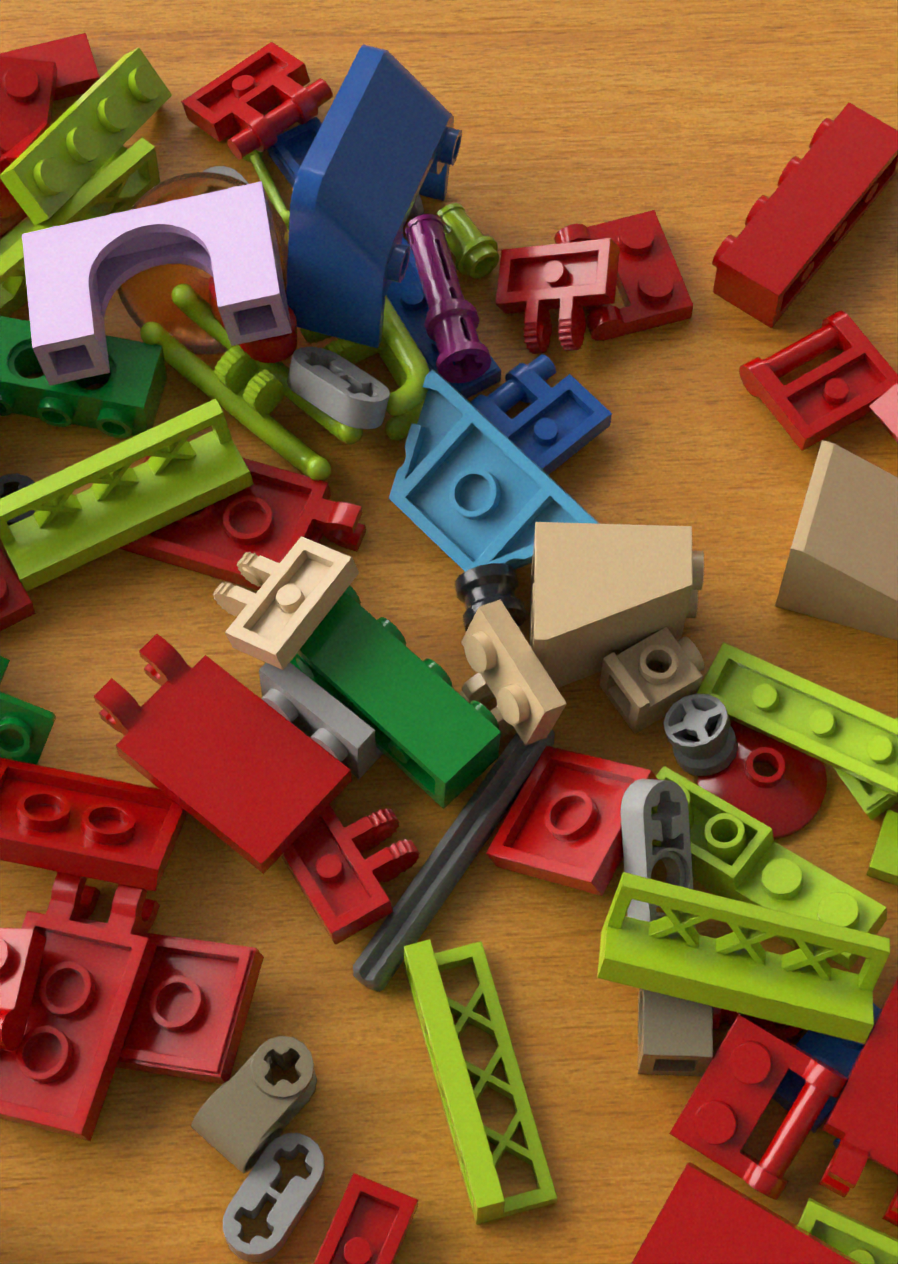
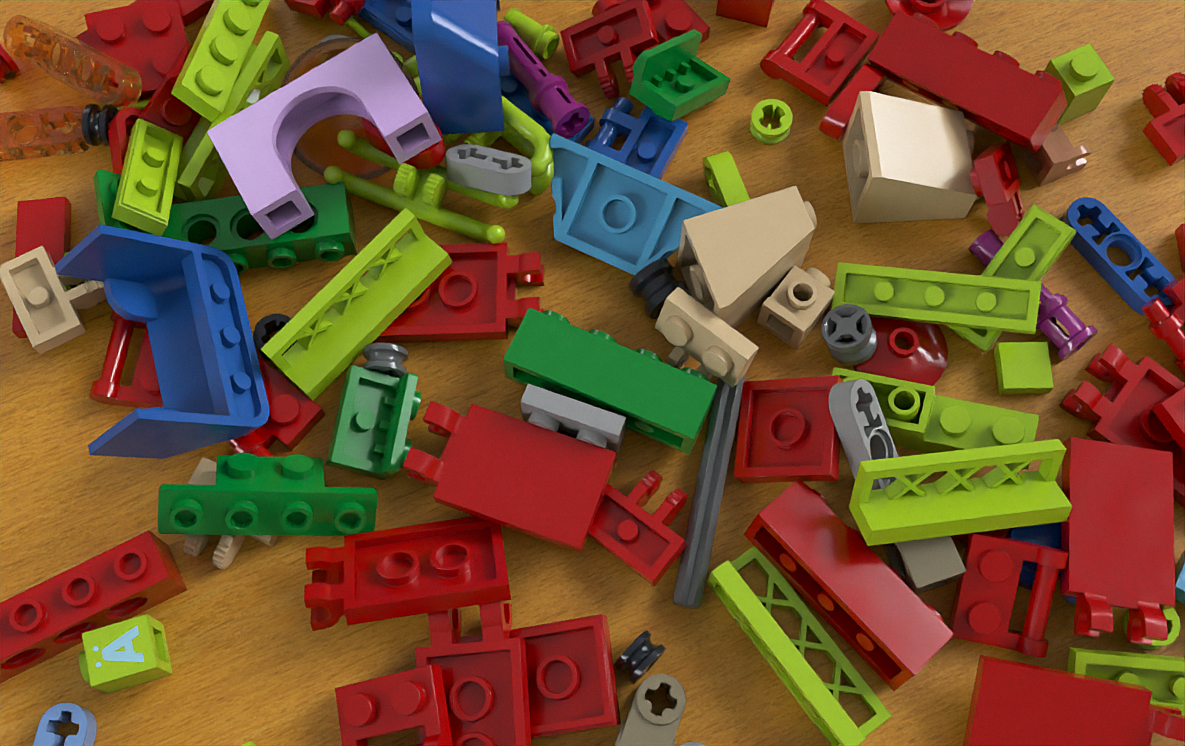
camera: 20 degrees left, 5 degrees up
(83, 639) = (373, 423): none -> green bracket
(126, 575) = (385, 359): none -> dark grey bush
(284, 1015) = (640, 657): none -> black bush
(290, 600) = (526, 343): tan hinge -> none
(567, 1023) = (848, 584): none -> red brick
(619, 352) = (674, 79): none -> green bracket
(627, 493) = (724, 179): none -> lime beam
(734, 432) = (776, 109): none -> lime bush
(858, 435) = (838, 115): none -> red beam

